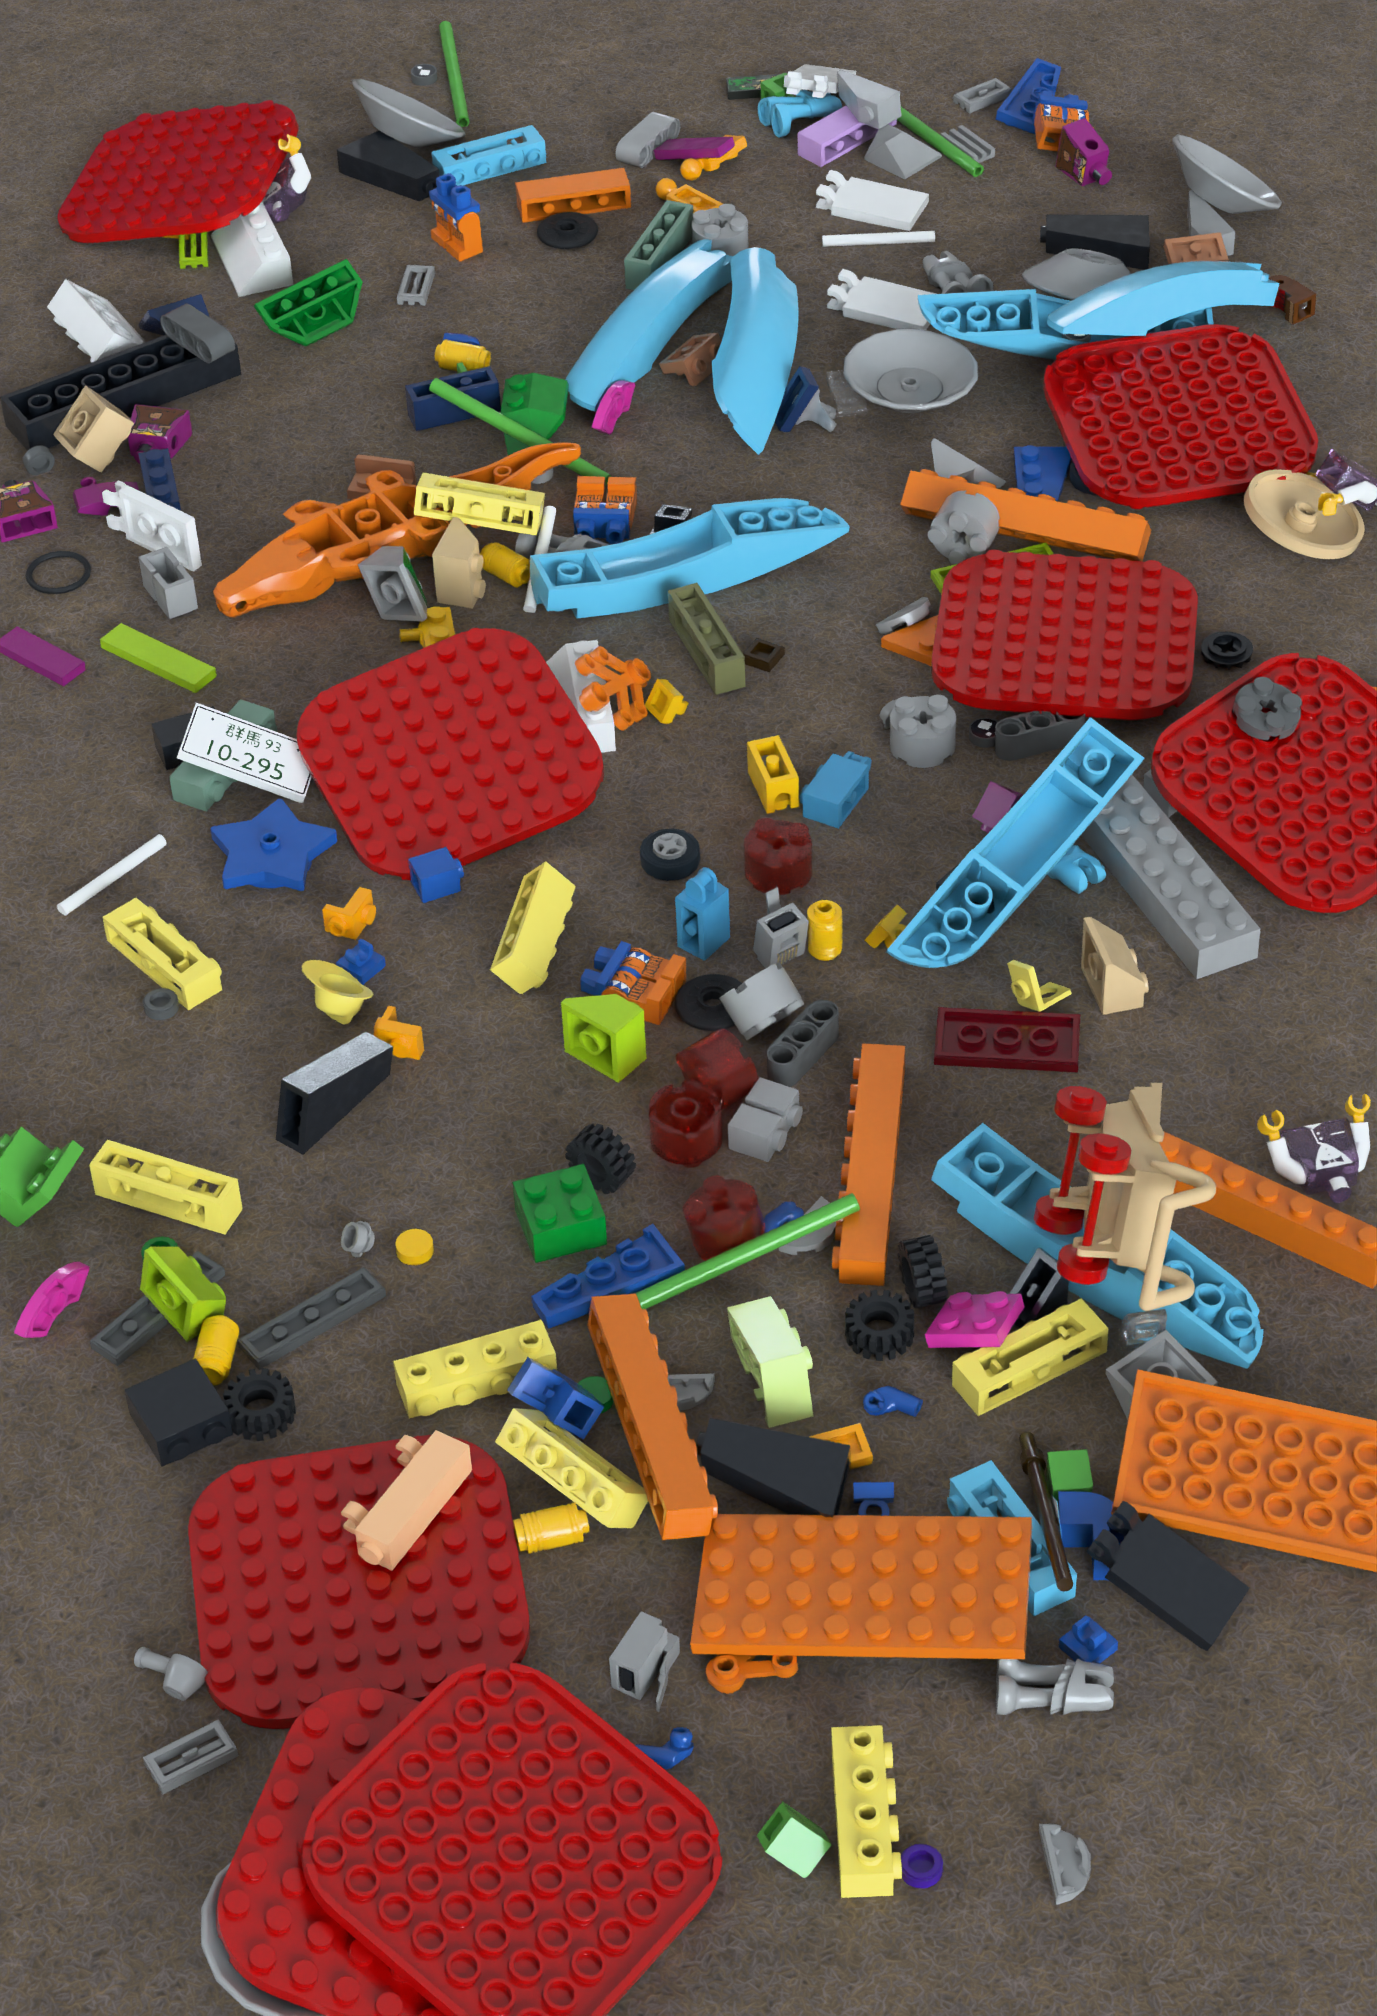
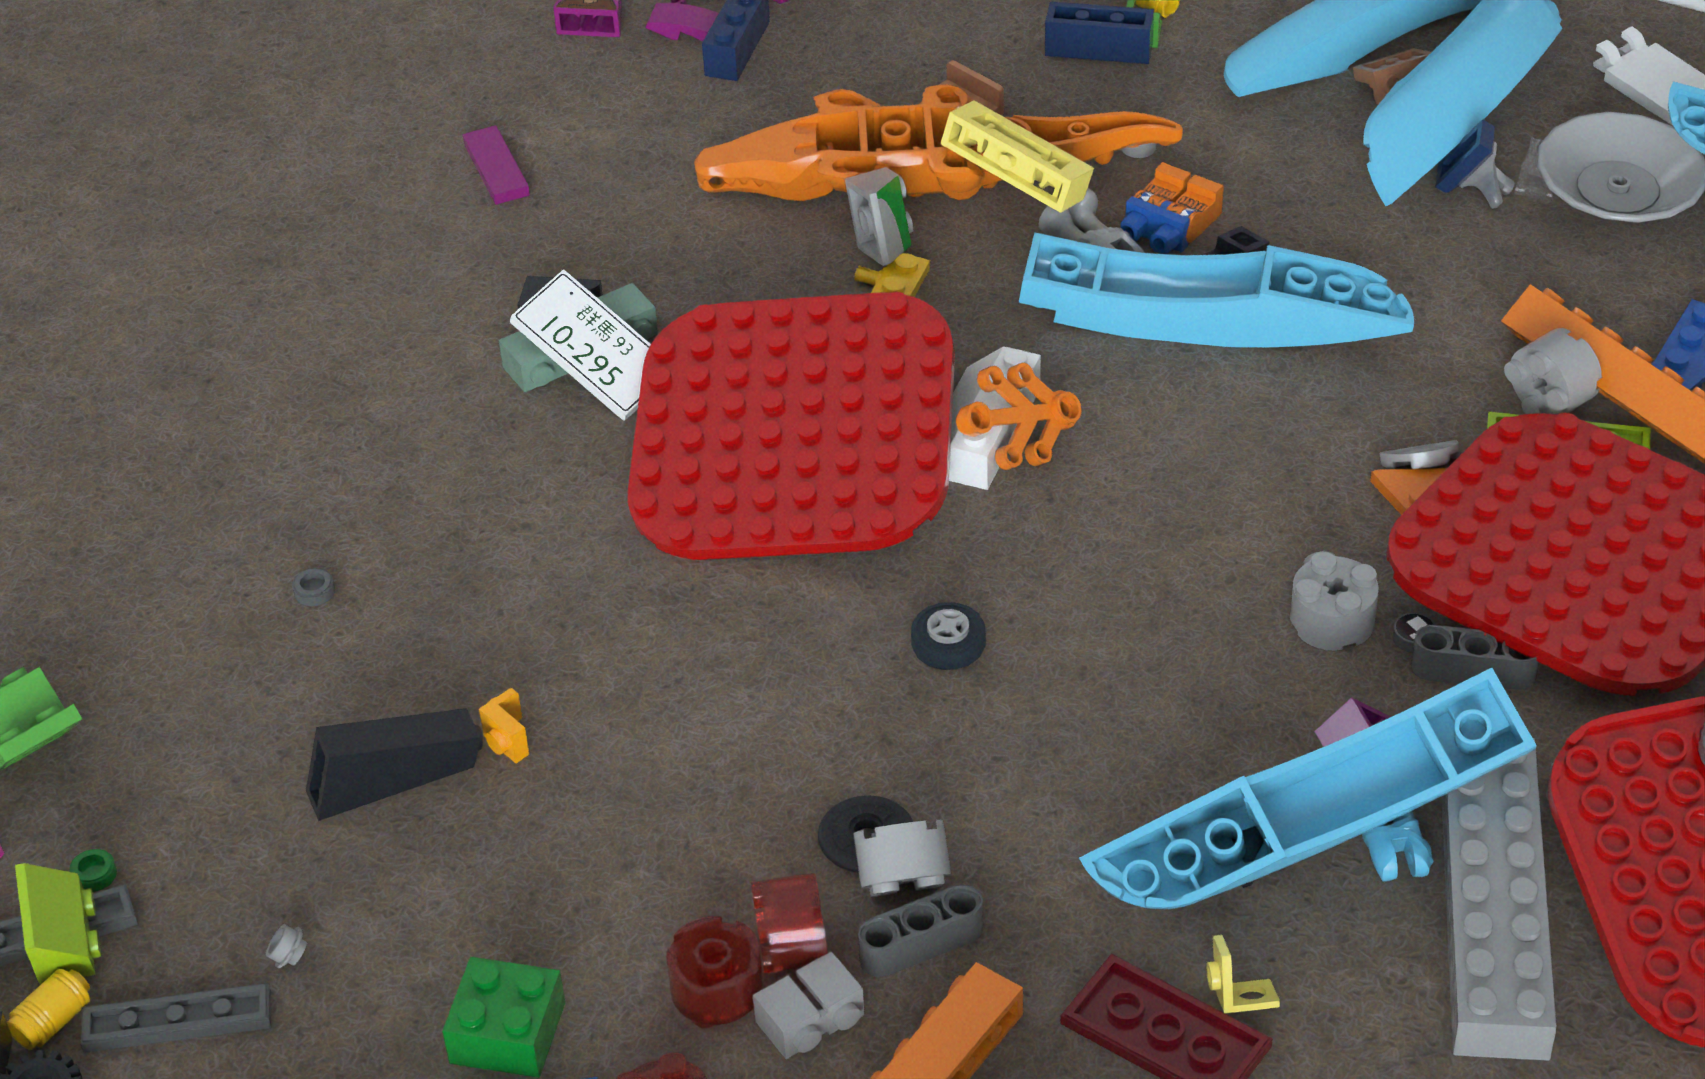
camera: 30 degrees right, 0 degrees up
(59, 590) = (582, 103): black tyre -> none
(111, 875) = (379, 424): white bar -> none
(154, 524) = (694, 66): white tile -> none
(158, 658) = (604, 208): lime tile -> none
(165, 1187) = (143, 798): light yellow brick -> none
(168, 582) = (664, 131): light grey piece -> none
(194, 973) = (353, 575): light yellow brick -> none
(271, 848) = (543, 460): blue plate -> none
(336, 990) = (481, 643): light yellow piece -> none
(353, 917) = (567, 569): light orange bracket -> none
(362, 961) = (538, 625): blue tile -> none
(414, 1247) = (338, 983): yellow tile -> none
(435, 874) = (684, 556): blue brick -> none
(458, 567) = (957, 218): tan slope -> none
(506, 425) = (1131, 84): bright green piece -> none
(506, 564) = (1018, 229): yellow head -> none
(533, 928) = (731, 662): light yellow brick -> none
(534, 403) = (1171, 71): green wedge -> none
(541, 548) = (1069, 226): white bar -> none
(603, 1157) = (590, 971): black tyre -> none
(605, 1033) = (708, 822): lime slope -> none
(612, 405) = (1263, 95): dark pink tile -> none
(637, 978) = (796, 771): hips -> none
(665, 701) = (1075, 454): yellow tile -> none
(702, 915) = (914, 724): dark azure brick -> none
(706, 638) = (1167, 398): olive brick -> none
(763, 654) = (1227, 440): dark brown tile -> none
(778, 781) = (1118, 593): yellow brick -> none
(778, 855) = (1058, 688): clear red brick -> none
(780, 933) = (986, 782): light grey piece -> none
(824, 930) = (1040, 800): yellow head -> none
(836, 789) = (1189, 632): dark azure brick -> none
(887, 928) = (1119, 825): yellow tile -> none
(950, 462) = (1608, 303): light grey slope -> none
(1111, 969) = (1344, 997): tan slope -> none

